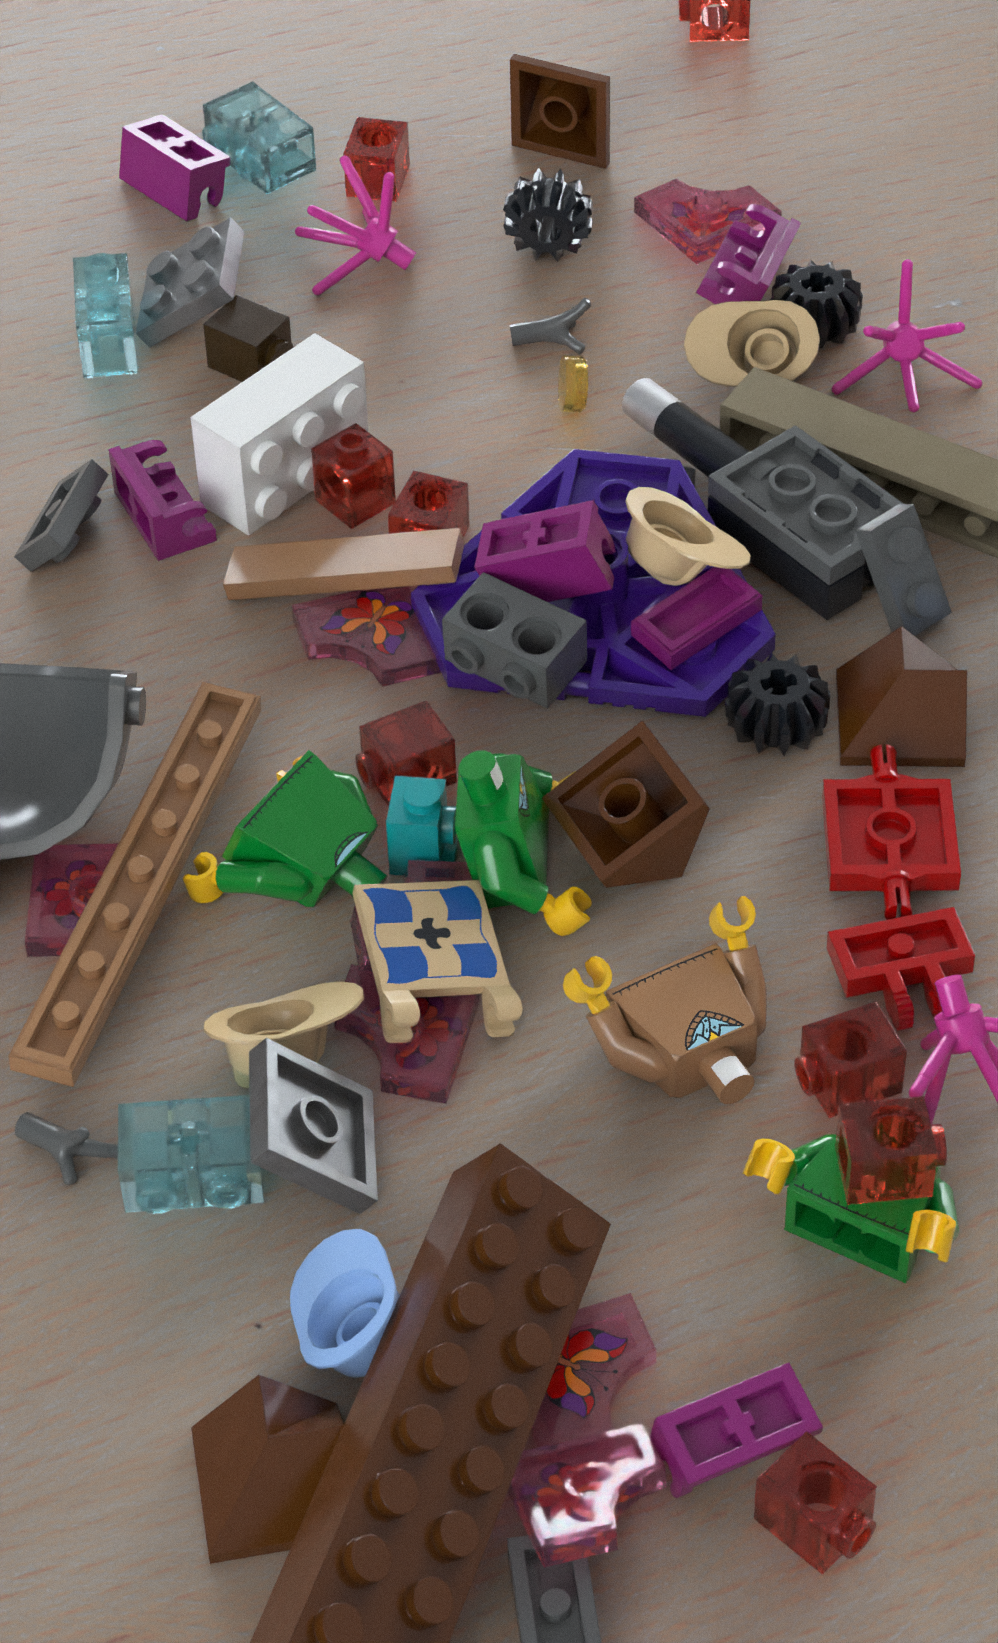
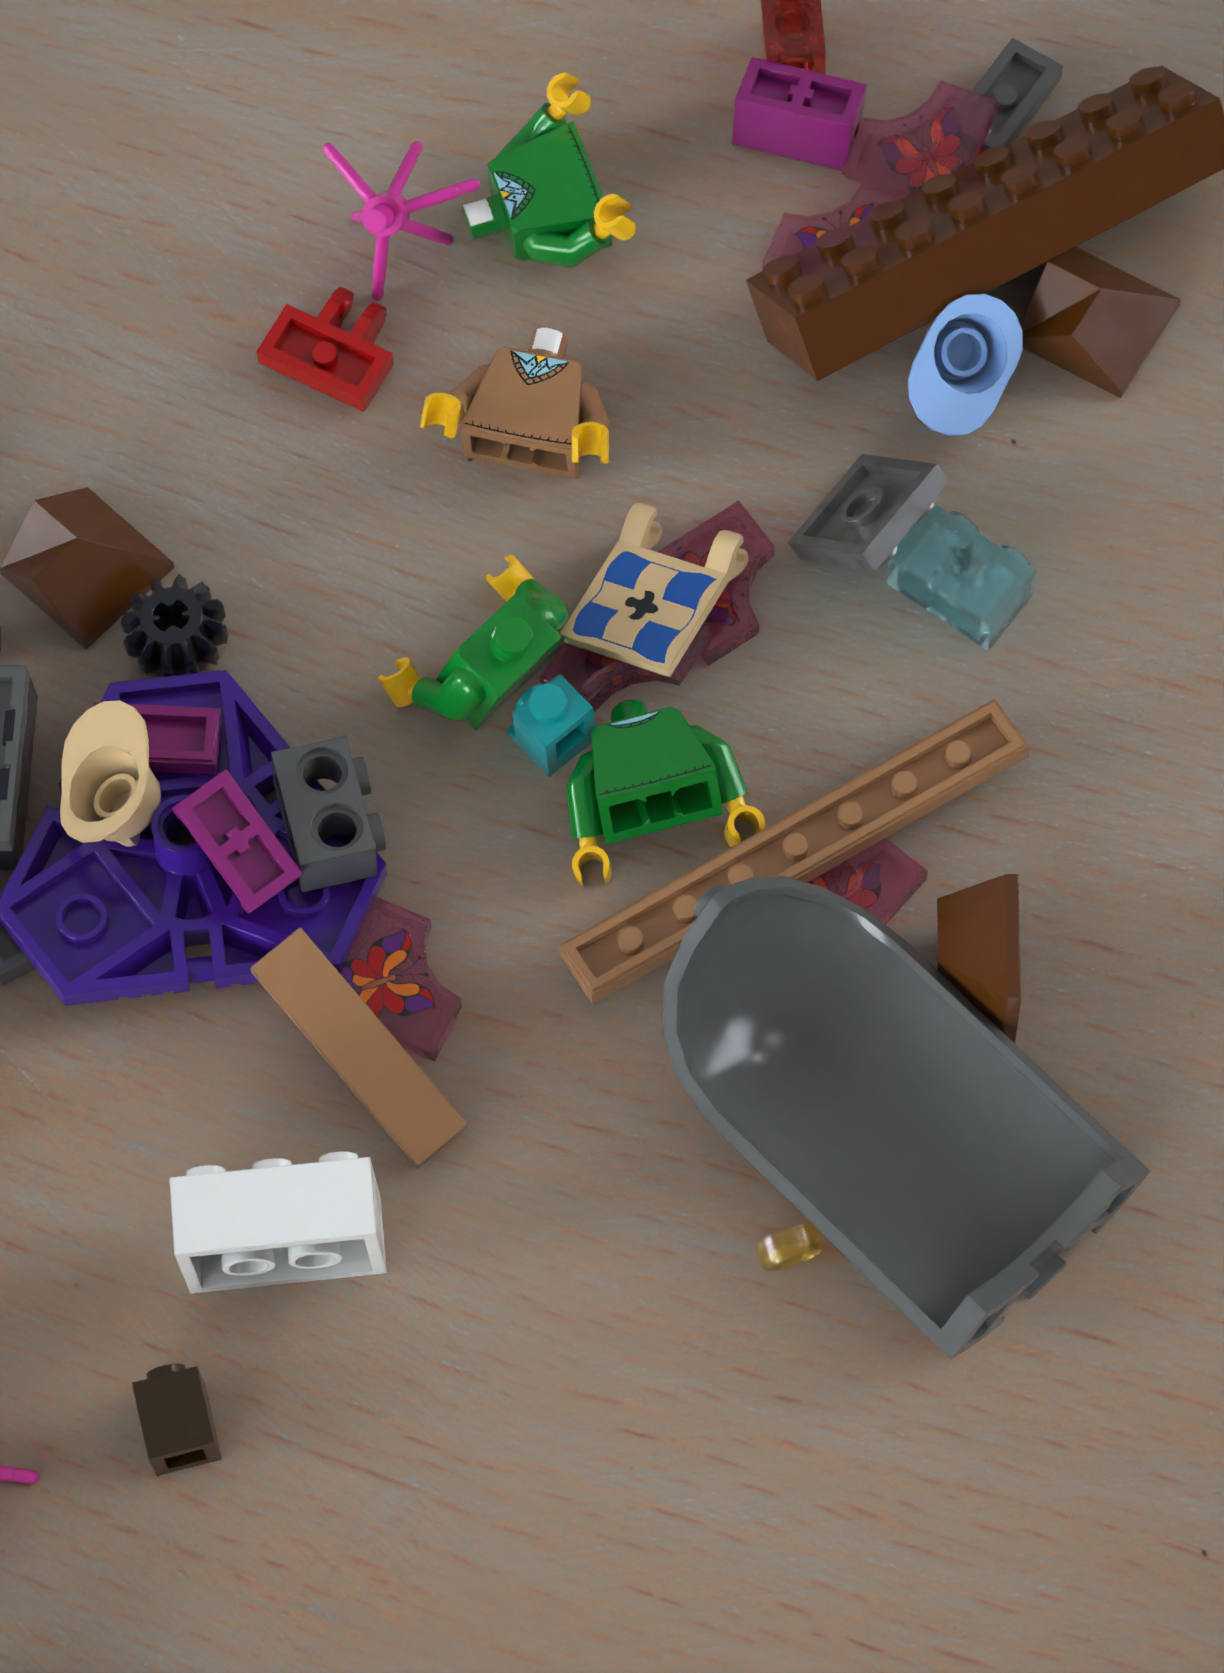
camera: 135 degrees left, 20 degrees up
(62, 1143) = (1036, 669): dark grey bar -> none
(67, 507) = (531, 1324): dark grey plate -> none
(105, 315) = (272, 1570): clear light blue brick -> none
(158, 501) = (429, 1277): magenta hinge -> none
(190, 281) = (161, 1539): flat silver plate -> none
(292, 1020) = (810, 613): tan piece -> none
(353, 475) = (250, 1136): clear red brick -> none
(405, 744) = (494, 809): clear red brick -> none
(430, 504) = (242, 1024): clear red brick -> none
(631, 811) = (396, 594): reddish brown slope -> none
(851, 1058) = (447, 277): clear red brick -> none
(888, 1150) = (540, 183): clear red brick -> none
(890, 834) = (223, 455): red plate -> none

